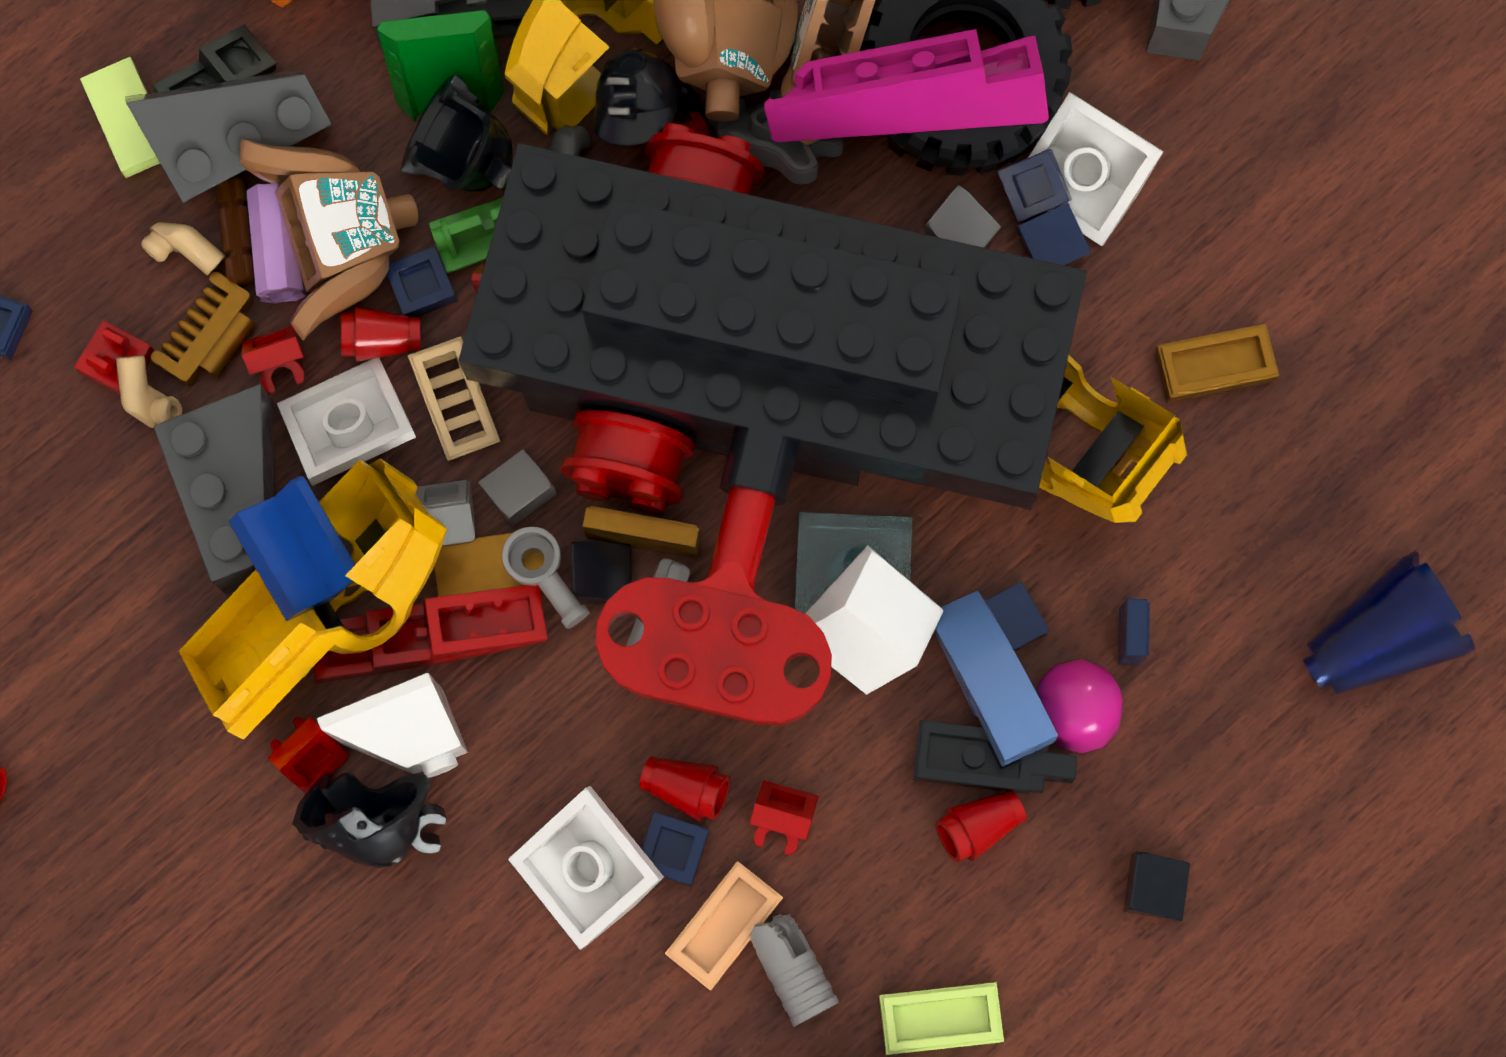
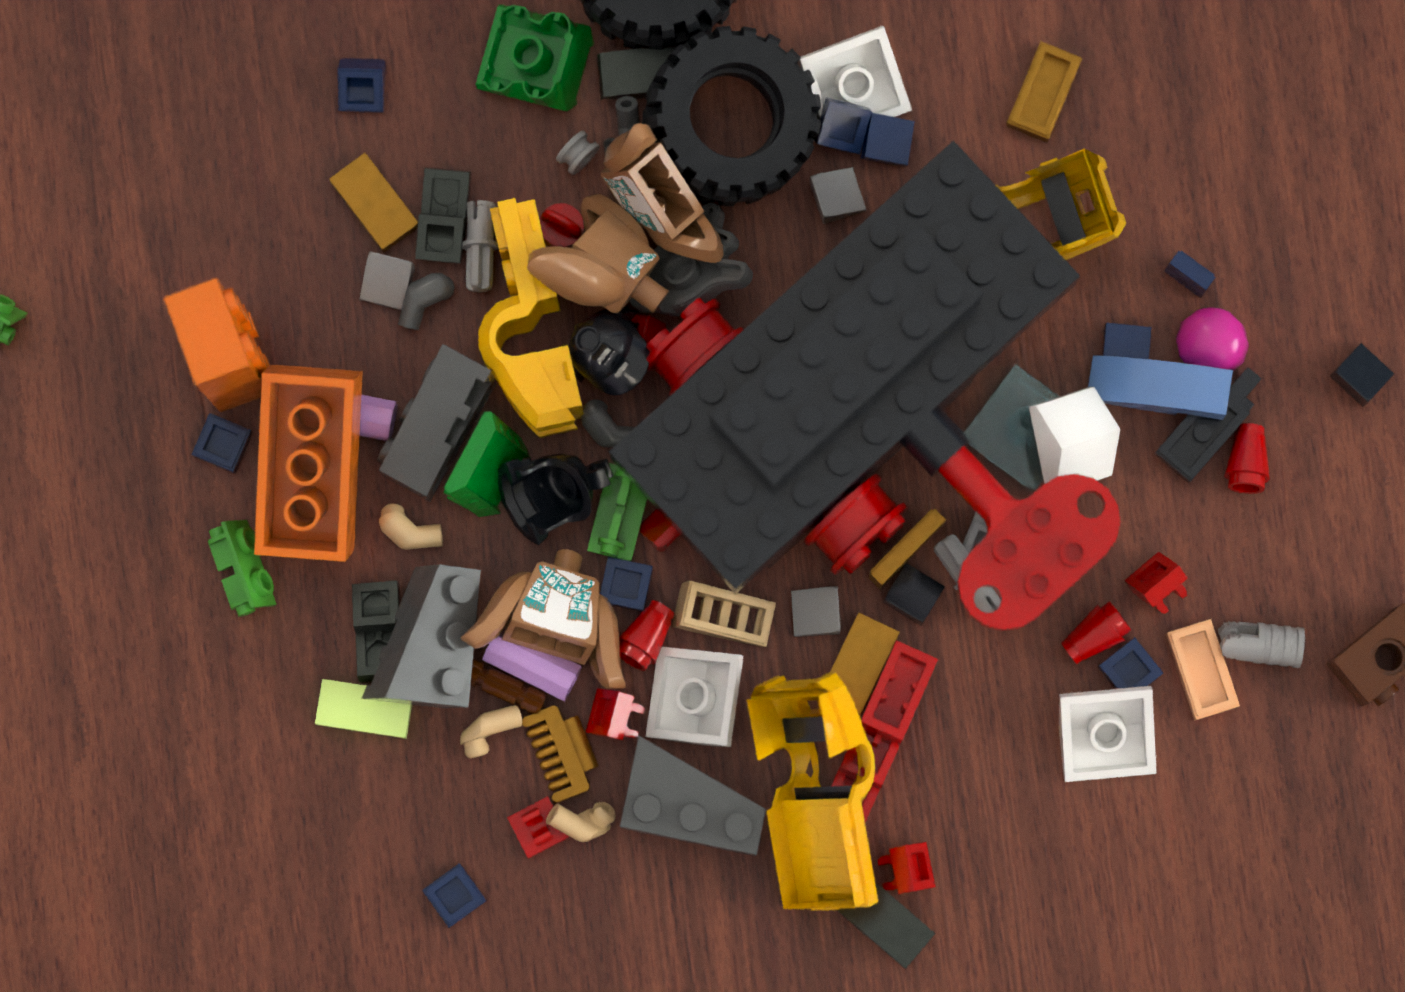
camera: 55 degrees left, 5 degrees up
(235, 773) = (890, 927): none -> pearl dark grey slope
(294, 549) = (776, 782): blue panel -> none
(328, 43) = (405, 532): none -> tan arm
(369, 823) = (984, 855): black helmet -> none
(402, 727) = (940, 791): white slope -> none
(453, 506) = (802, 663): light grey slope -> none
(537, 540) = (897, 630): light grey bar -> none
(913, 89) = (741, 164): dark pink wedge -> none
(941, 1018) = (1354, 570): yellowish green tile -> none
(1389, 630) = (1301, 112): clear blue cone -> none

